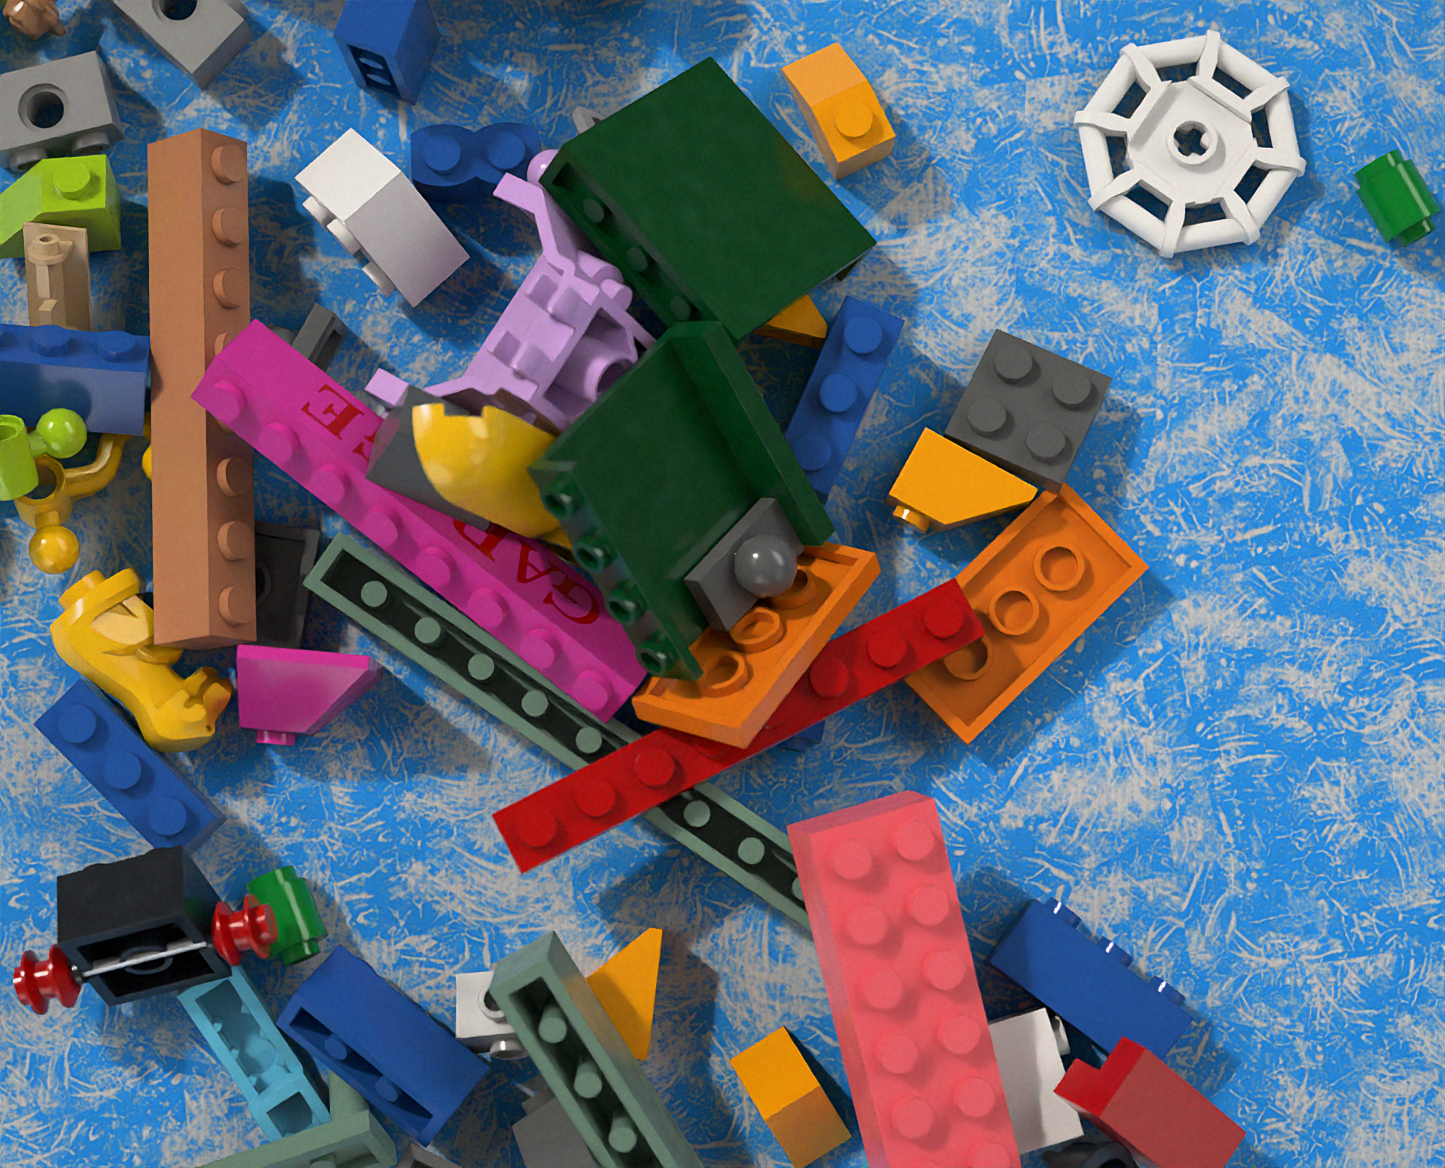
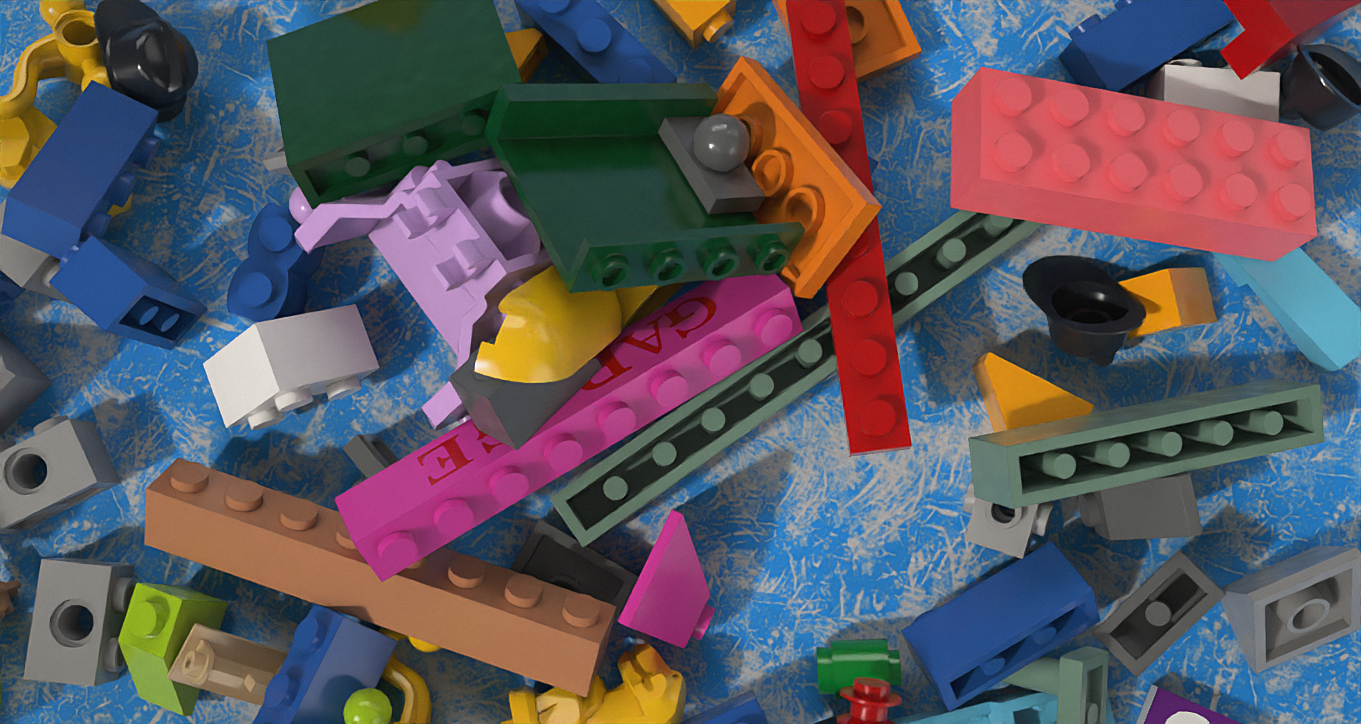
camera: 65 degrees left, 0 degrees up
(754, 1012) = (1083, 307): none -> black piece

